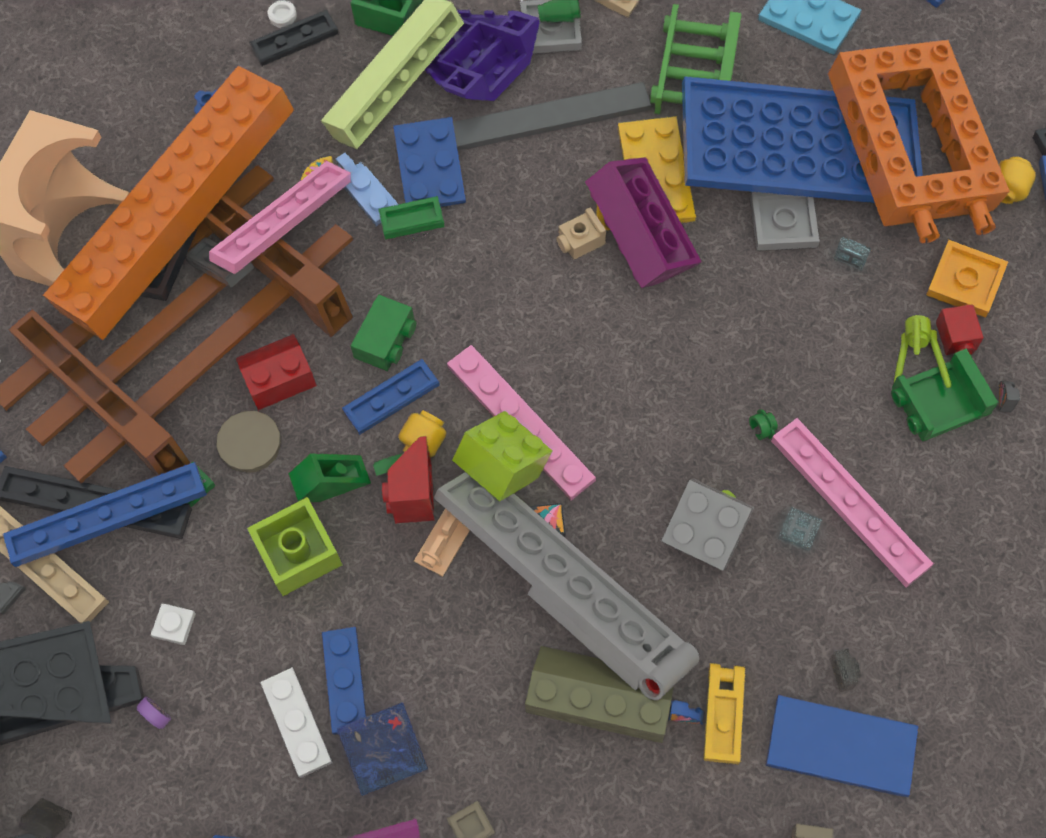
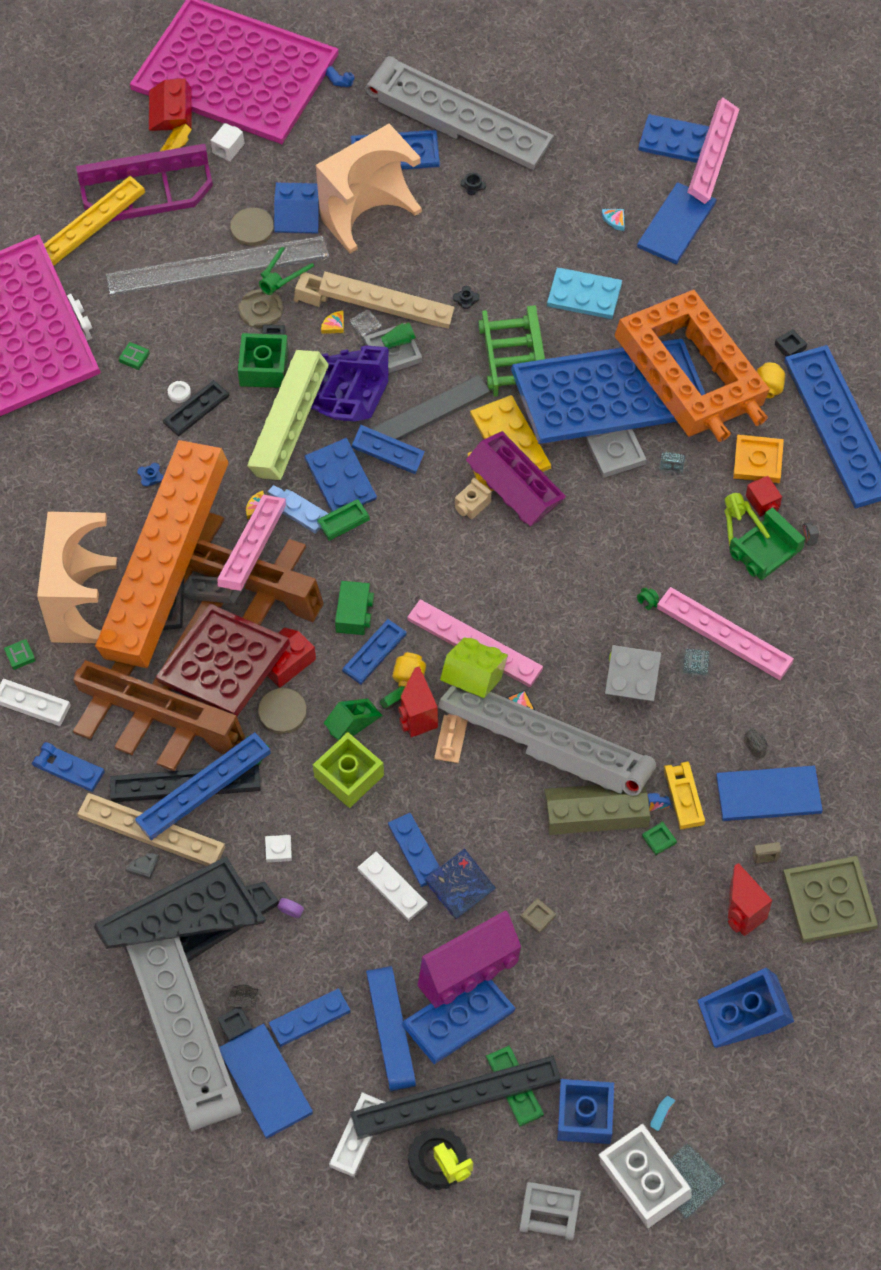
camera: 20 degrees left, 5 degrees down
(190, 358) = (223, 660): none -> plate
(498, 144) = (387, 449): none -> blue plate
(671, 765) = (659, 838): none -> green tile

